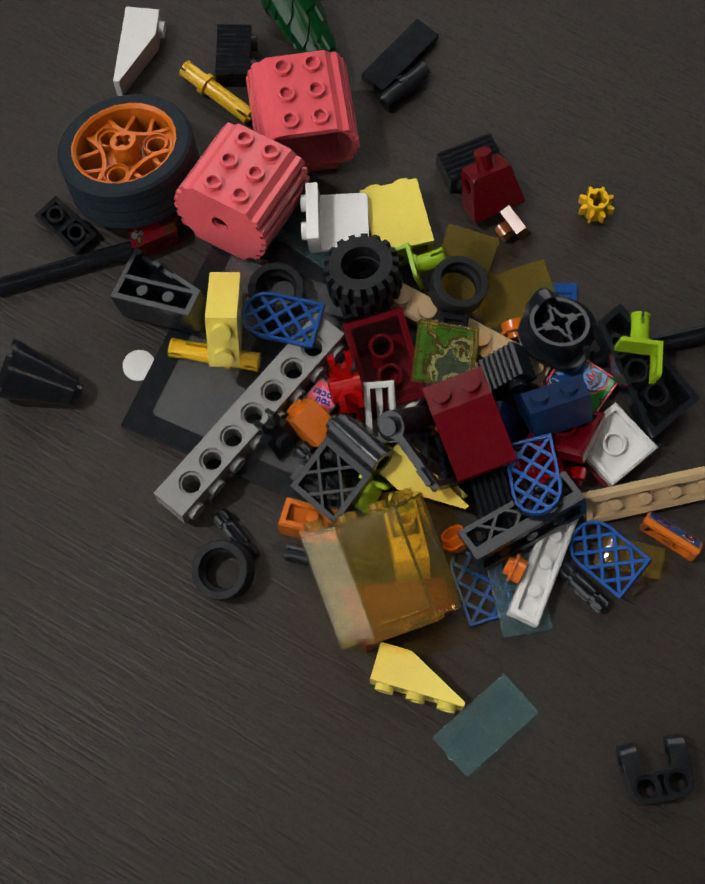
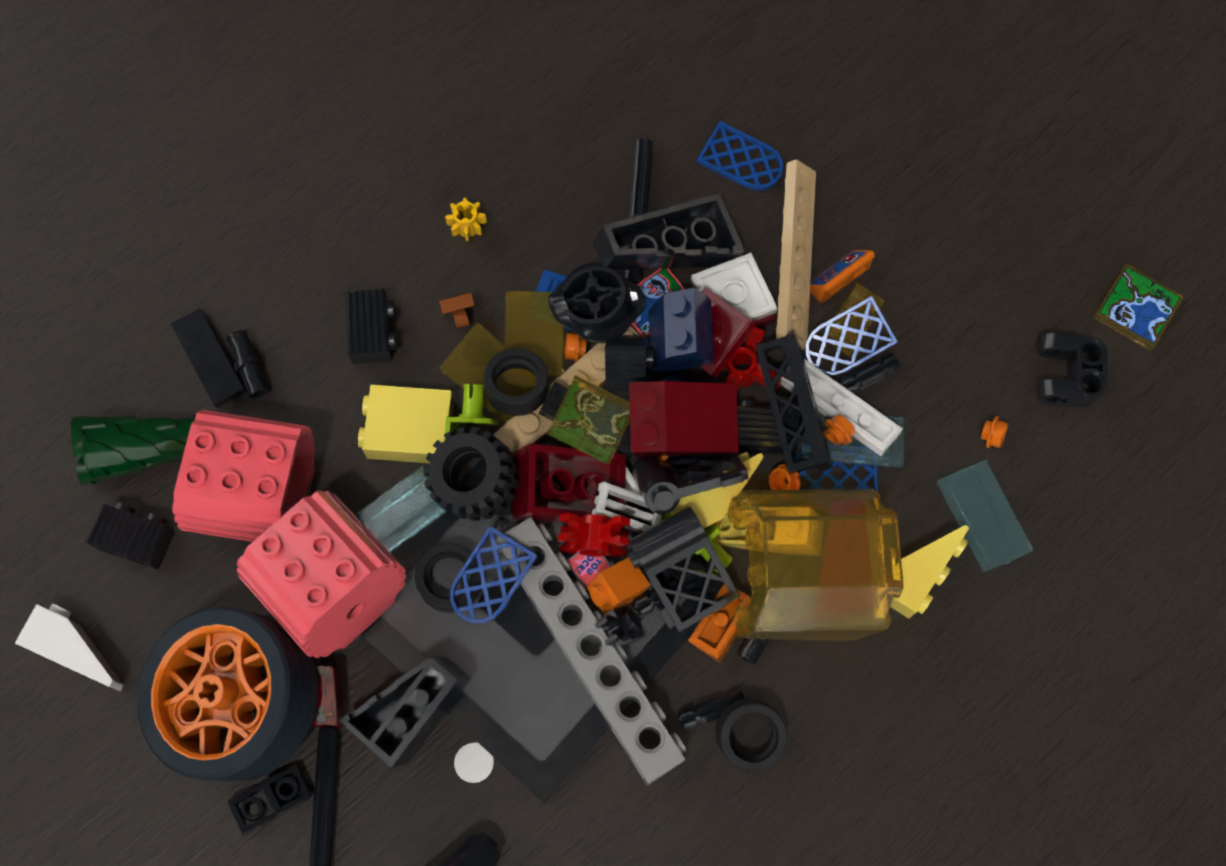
camera: 75 degrees left, 0 degrees up
(199, 352) = (495, 675): yellow pin -> none
(207, 85) = (169, 571): yellow pin -> none
(224, 319) = (473, 640): light yellow brick -> none
(332, 217) = (390, 485): white bracket -> none
(489, 185) = (409, 314): dark red torso -> none
(535, 482) = (752, 362): blue window -> none
(568, 714) = (994, 432): none -> orange plate
(641, 344) = (653, 220): lime bracket -> none

